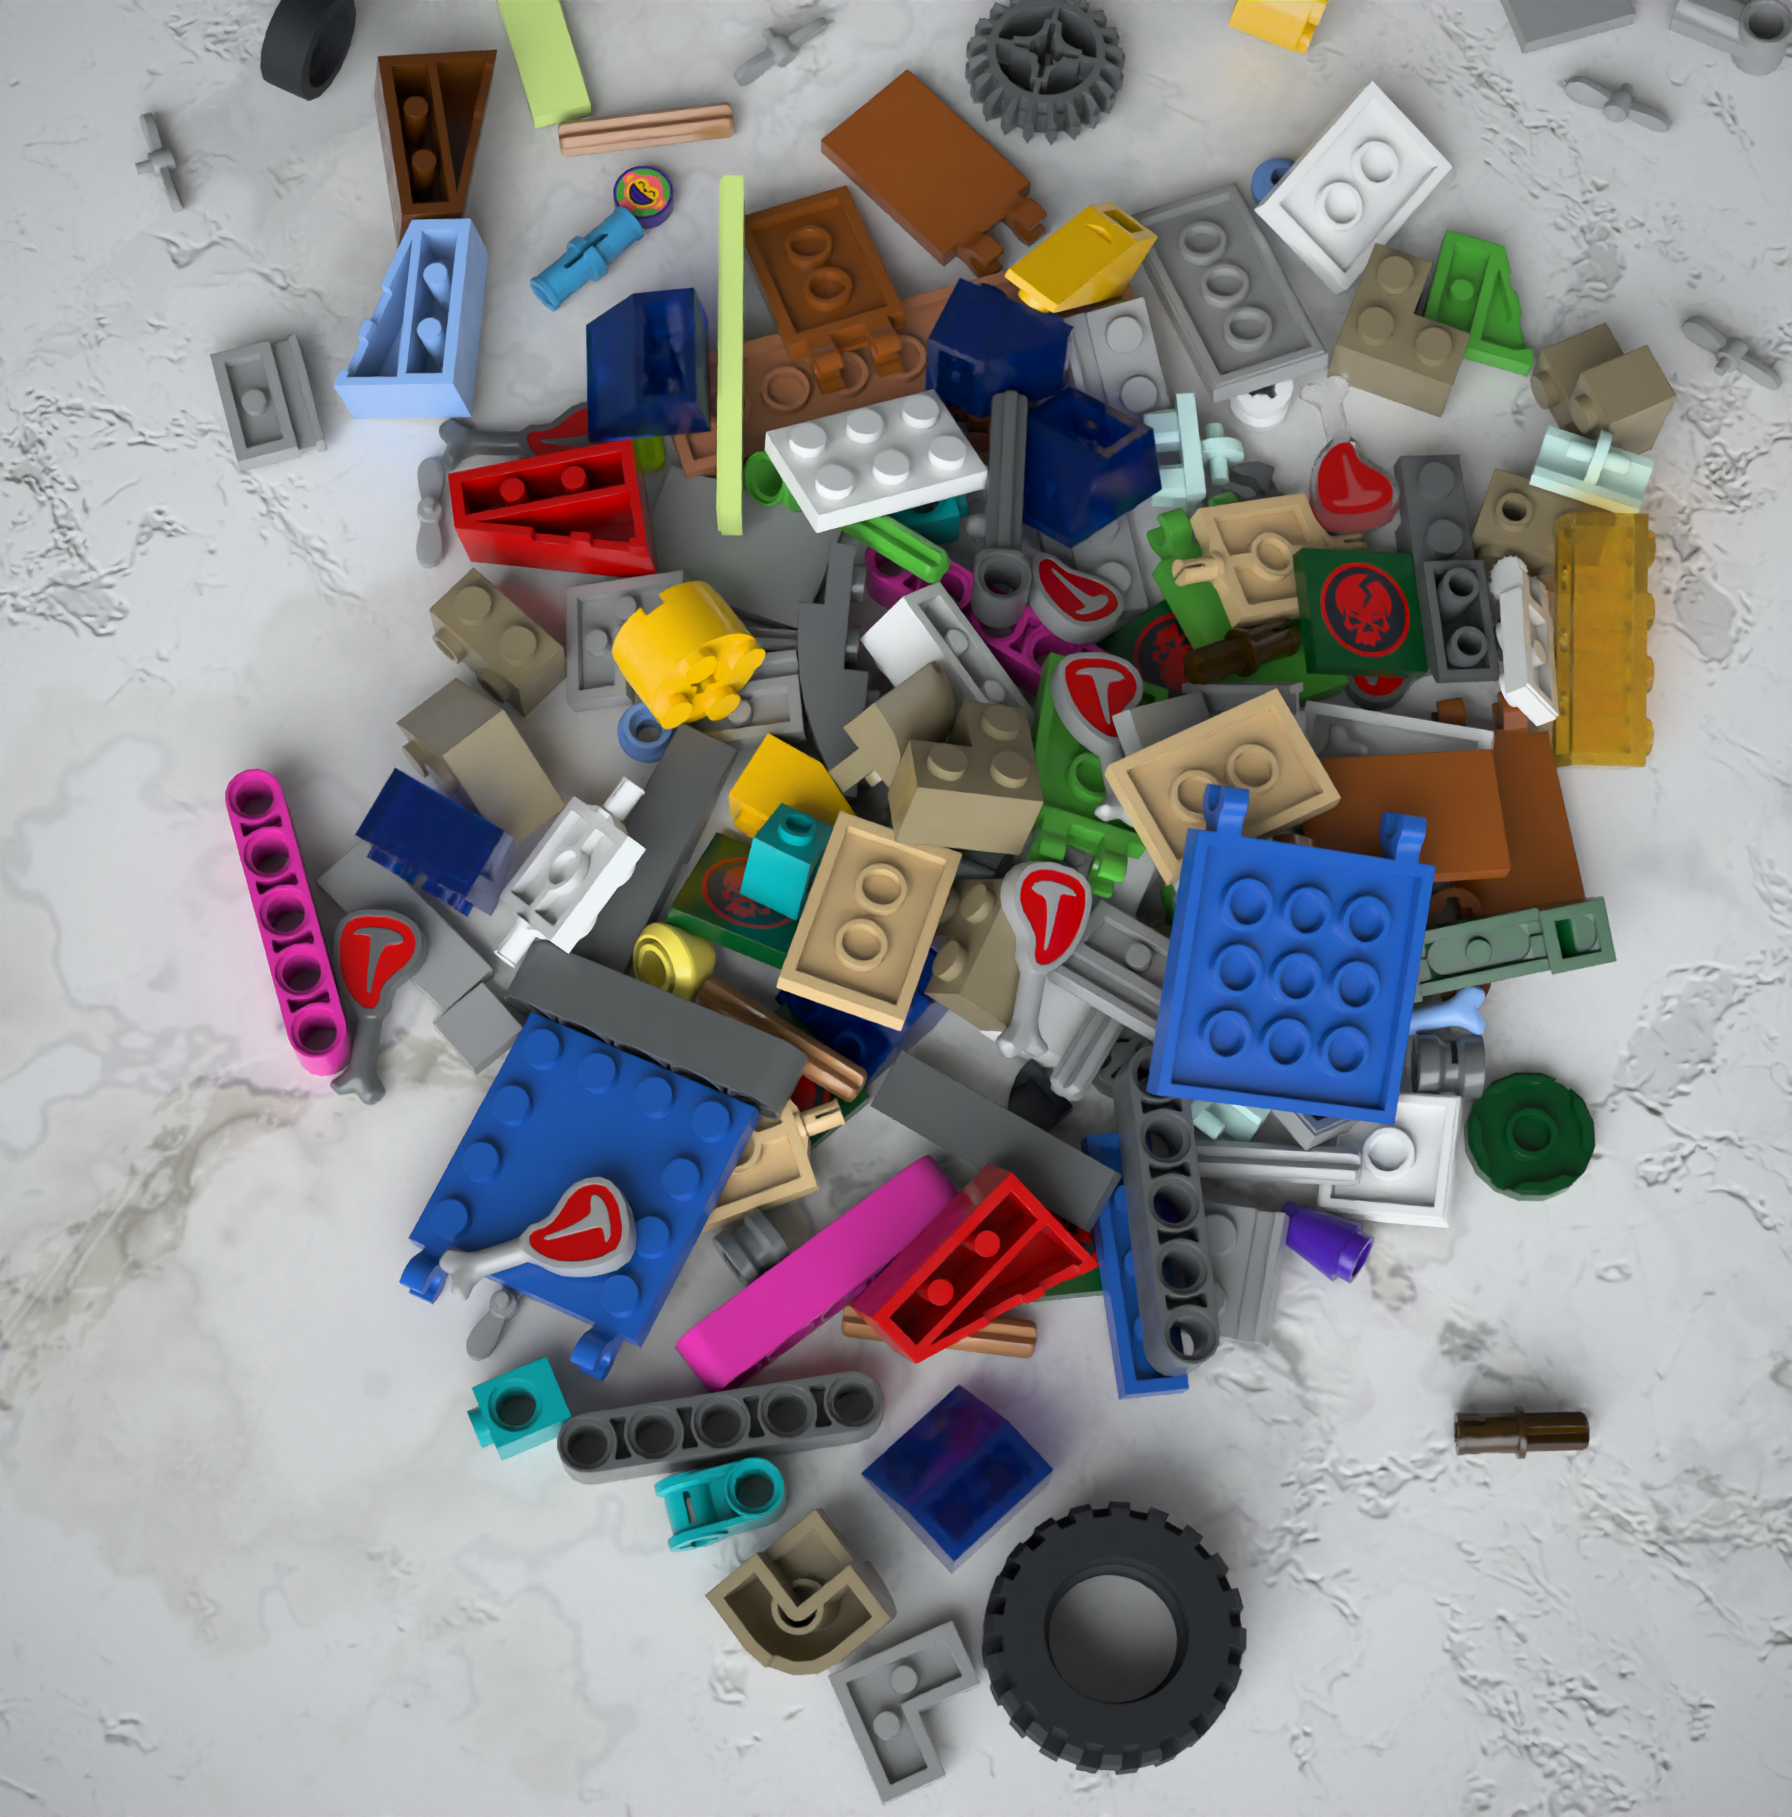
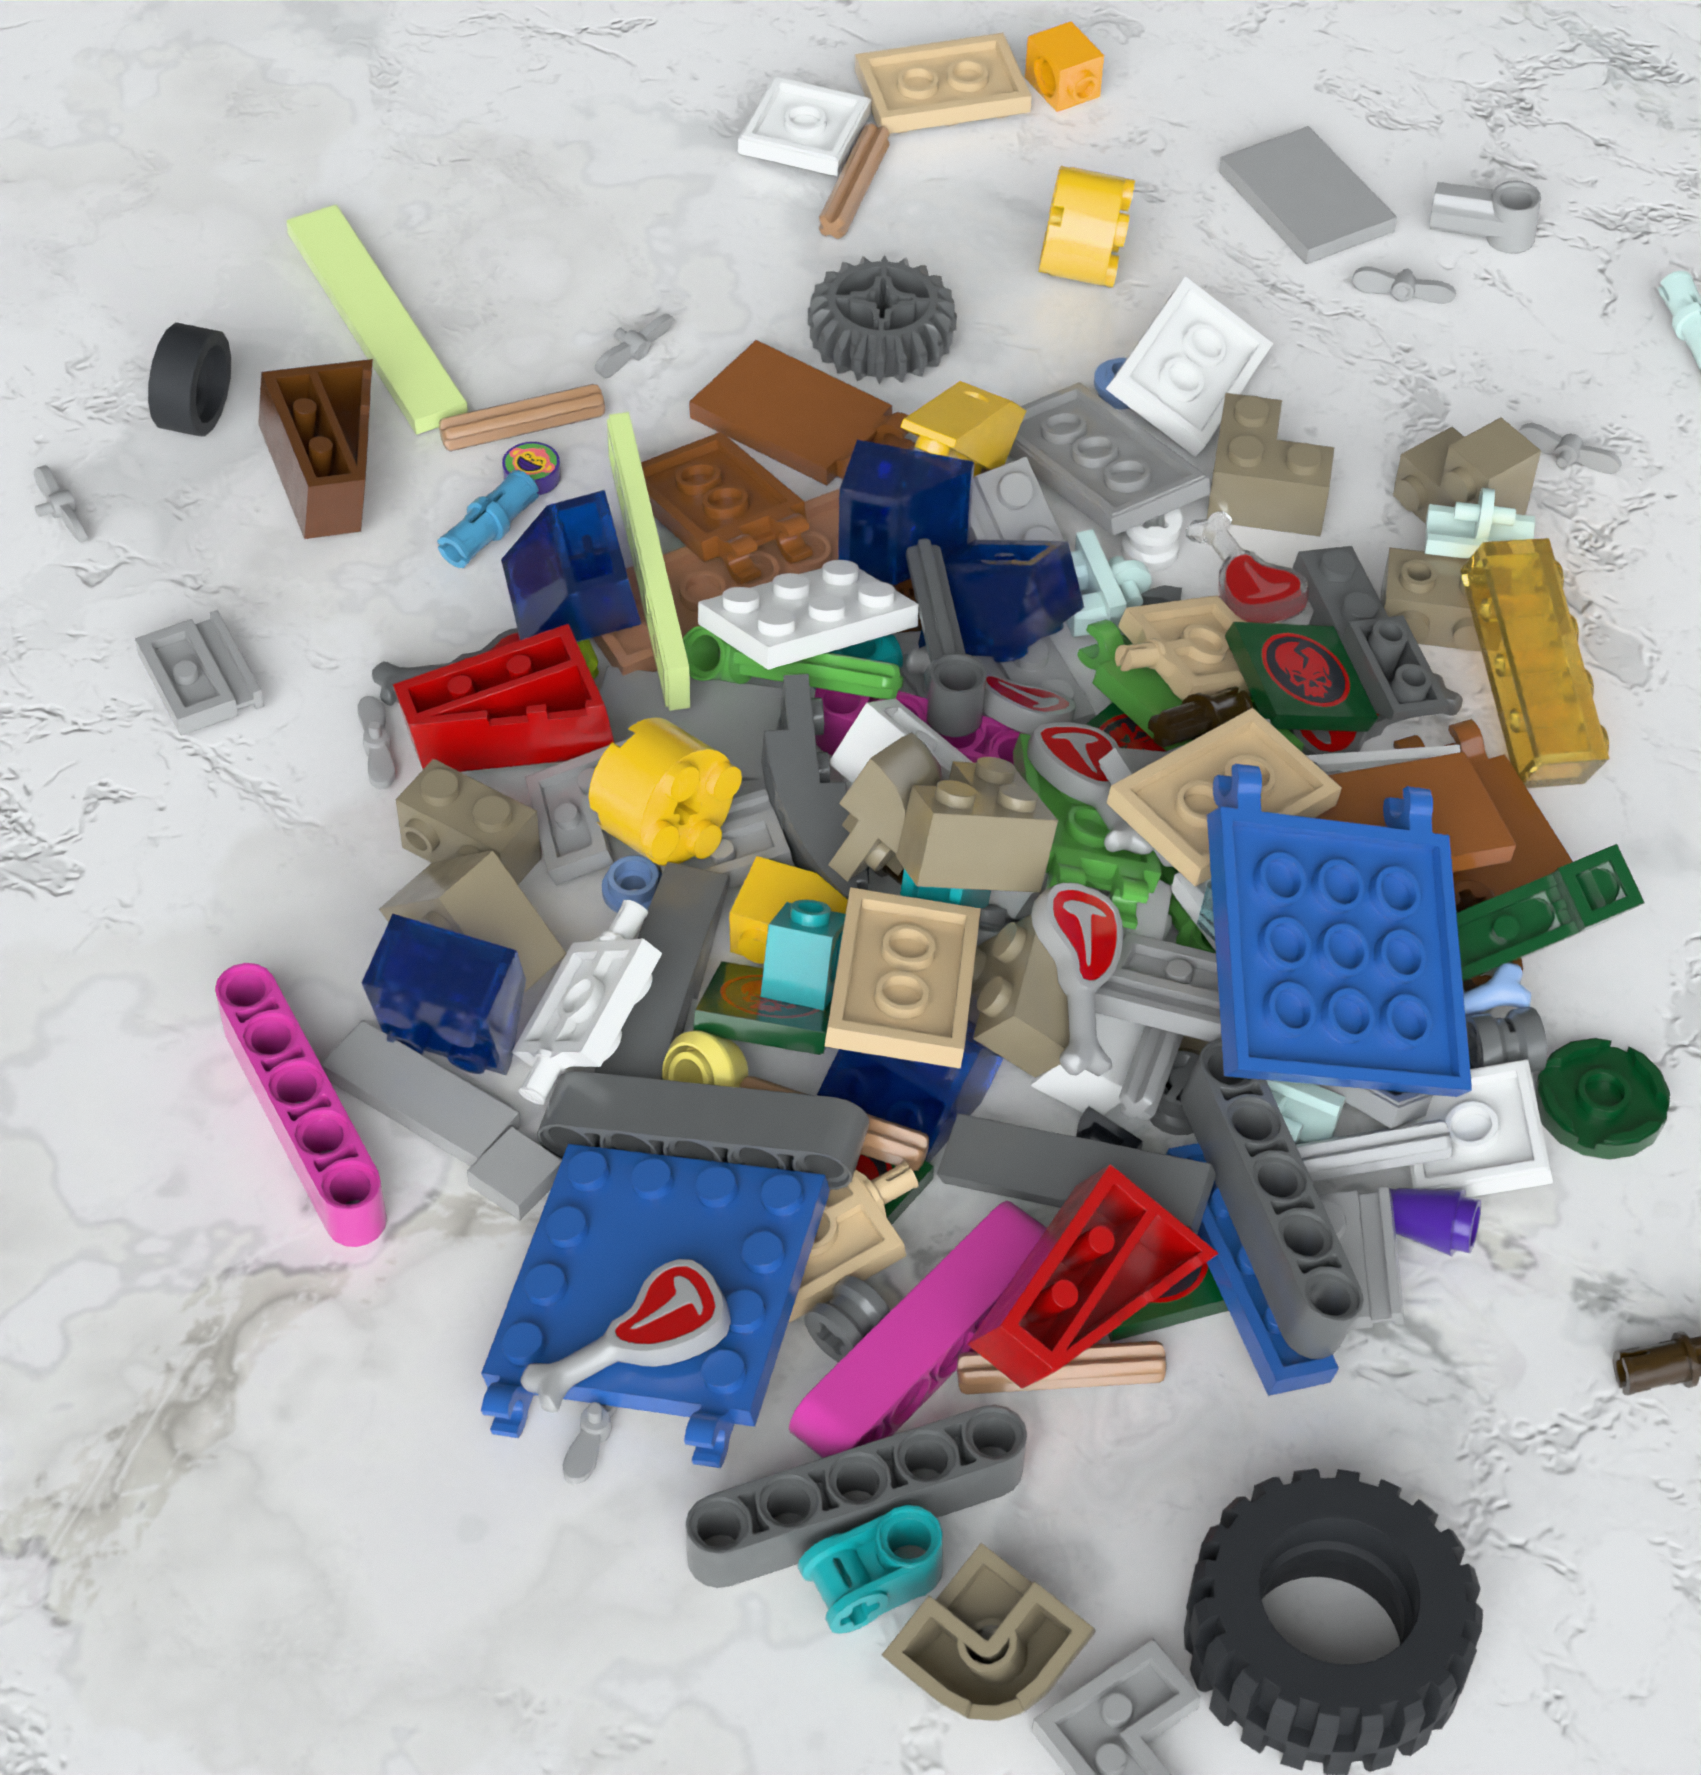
camera: 10 degrees left, 20 degrees down
(371, 960) = (396, 1118): dark grey piece -> none
(426, 330) = (344, 589): light blue wedge -> none
(529, 1381) = (640, 1486): teal brick -> none
(958, 1476) = (1125, 1497): clear blue slope -> none
(1475, 296) = (1327, 420): bright green wing -> none
(1525, 641) = (1462, 675): white hinge -> none

